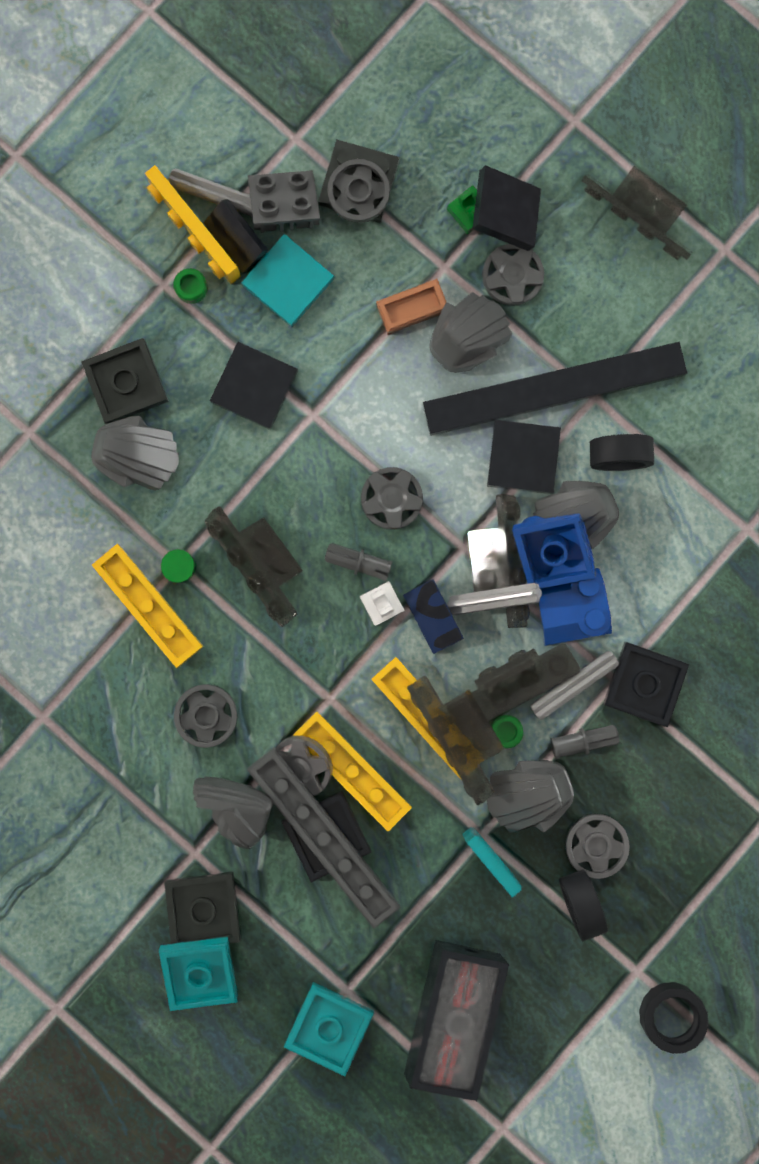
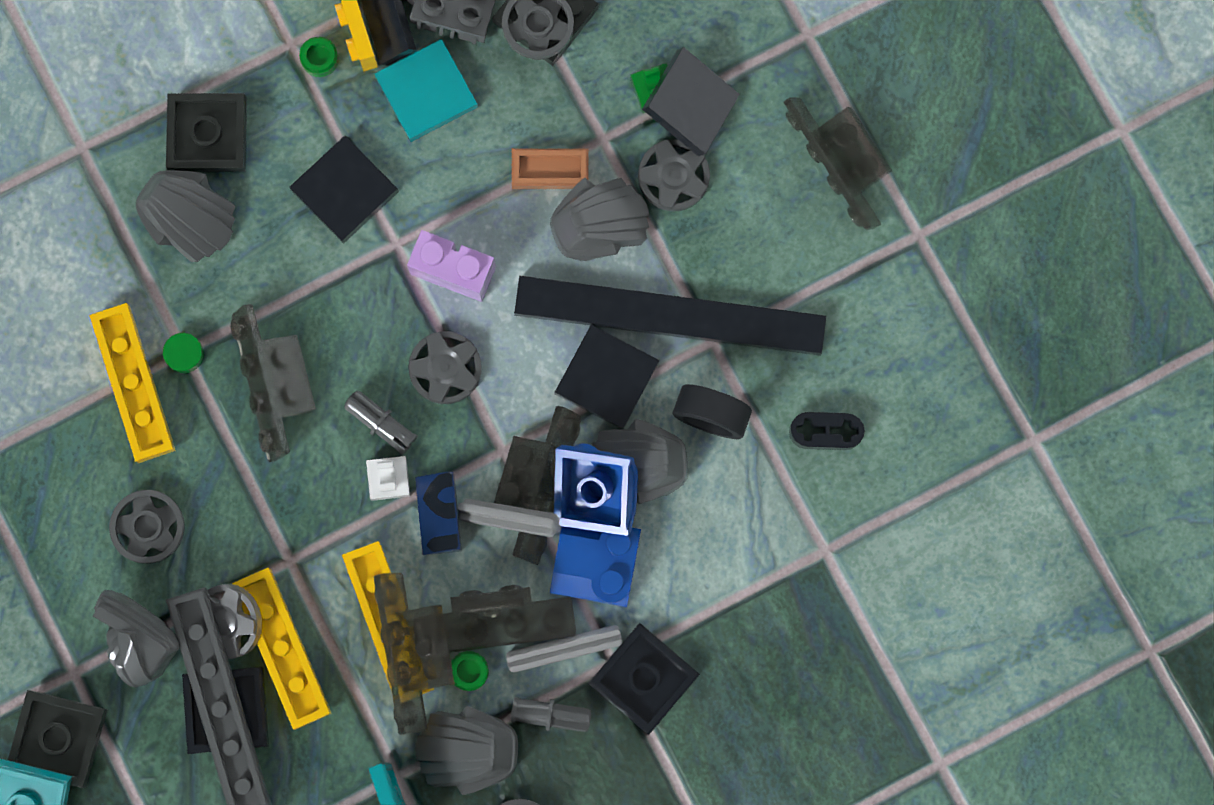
camera: 20 degrees right, 5 degrees down
(362, 417) = (440, 263): none -> lavender piece
(711, 426) = (826, 421): none -> black beam

